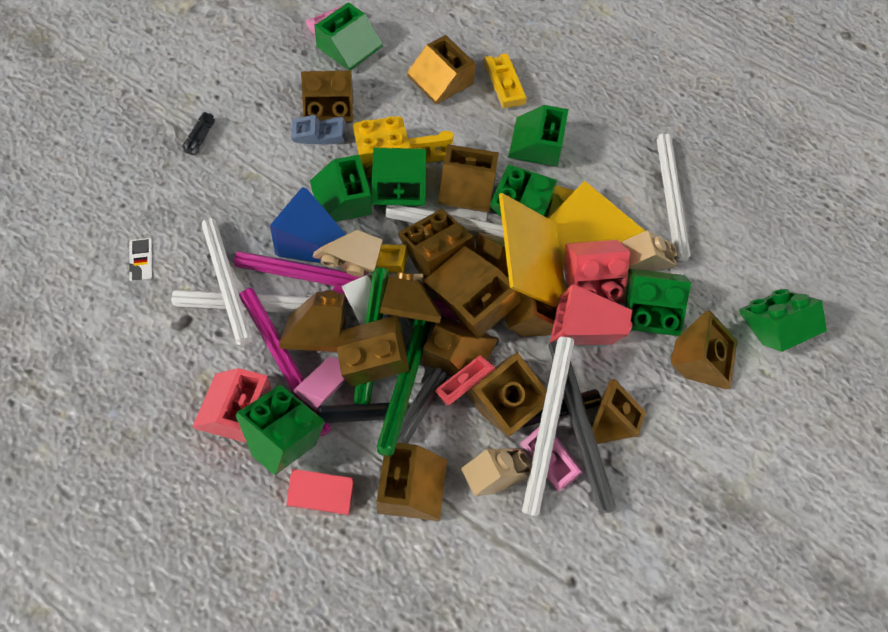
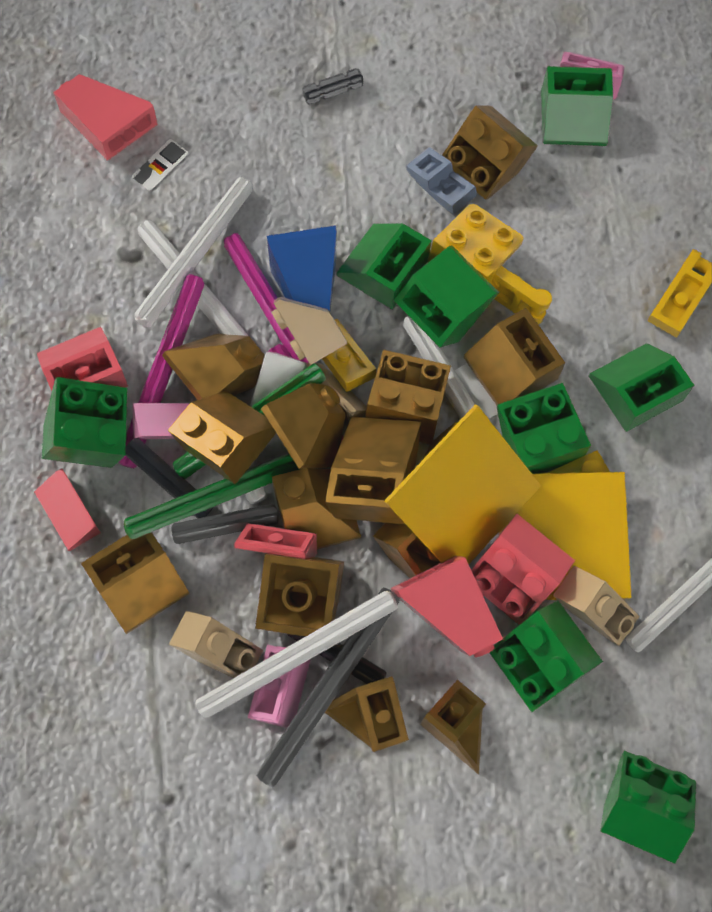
camera: 50 degrees right, 10 degrees up
(70, 259) = (105, 114): none -> coral slope
(442, 70) = (627, 225): pearl gold slope -> none
(656, 378) = (458, 723): none -> pearl gold slope
(706, 352) = (530, 752): pearl gold slope -> none

